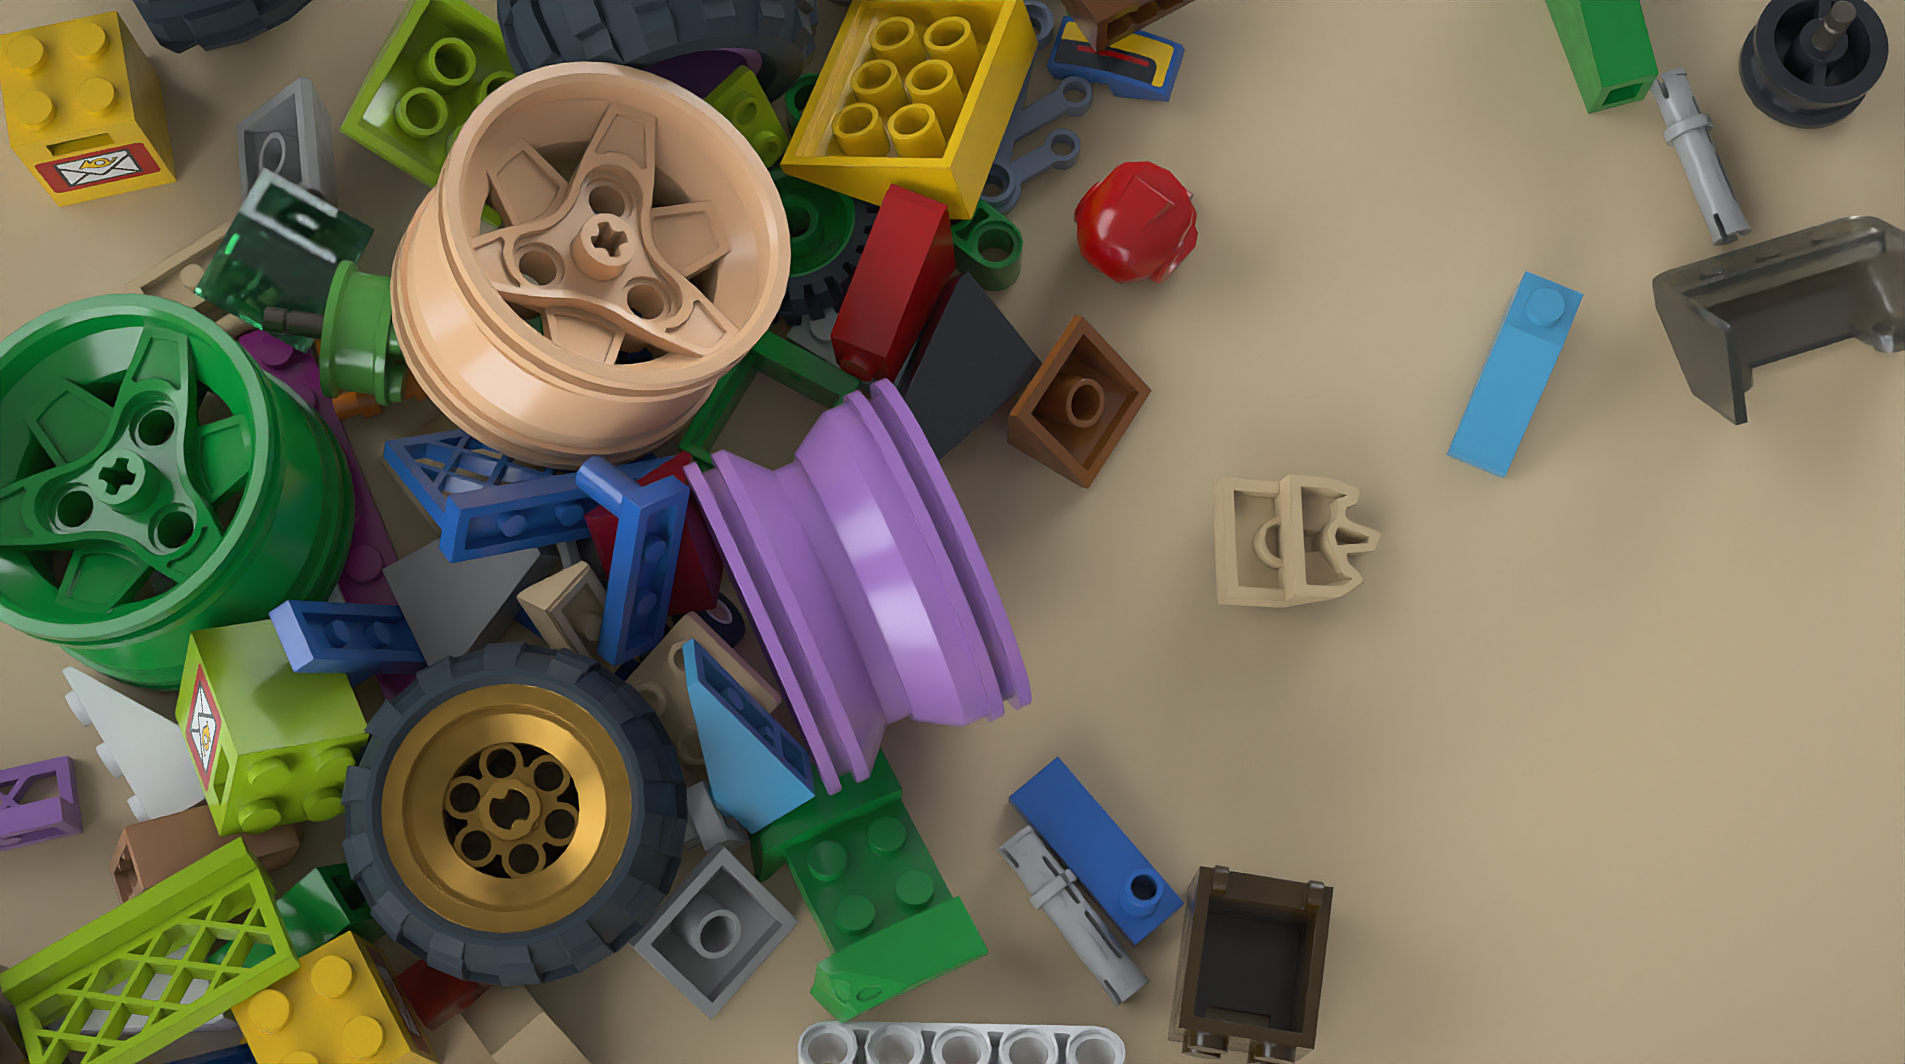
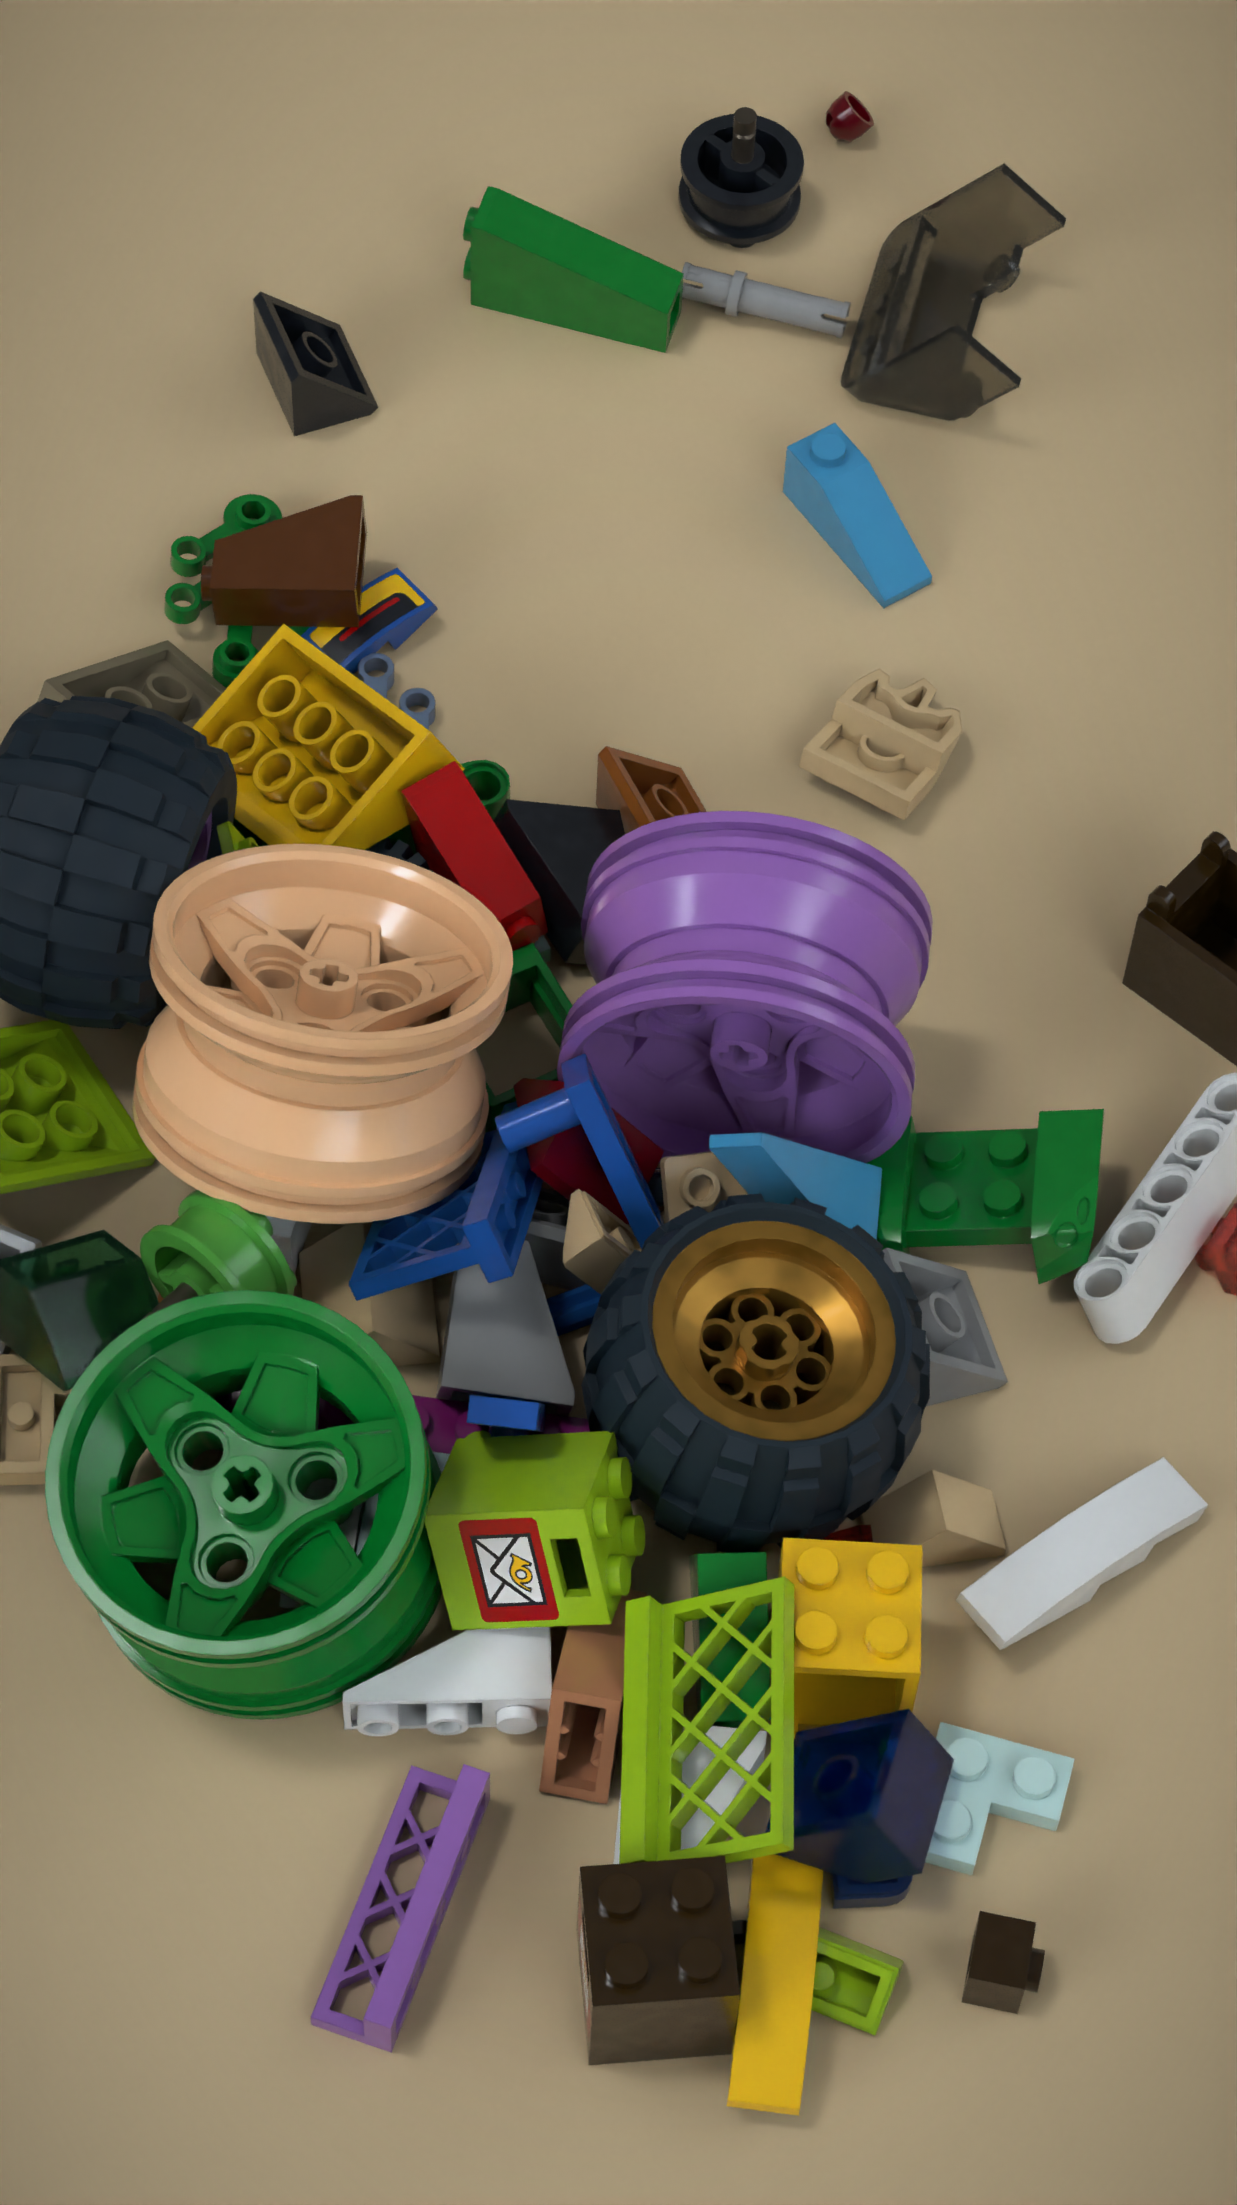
camera: 60 degrees left, 15 degrees down
(1078, 922) = (1115, 1065): light grey pin -> none
(1096, 852) = (1057, 1022): blue piece -> none
(1136, 223) = (539, 680): red helmet -> none

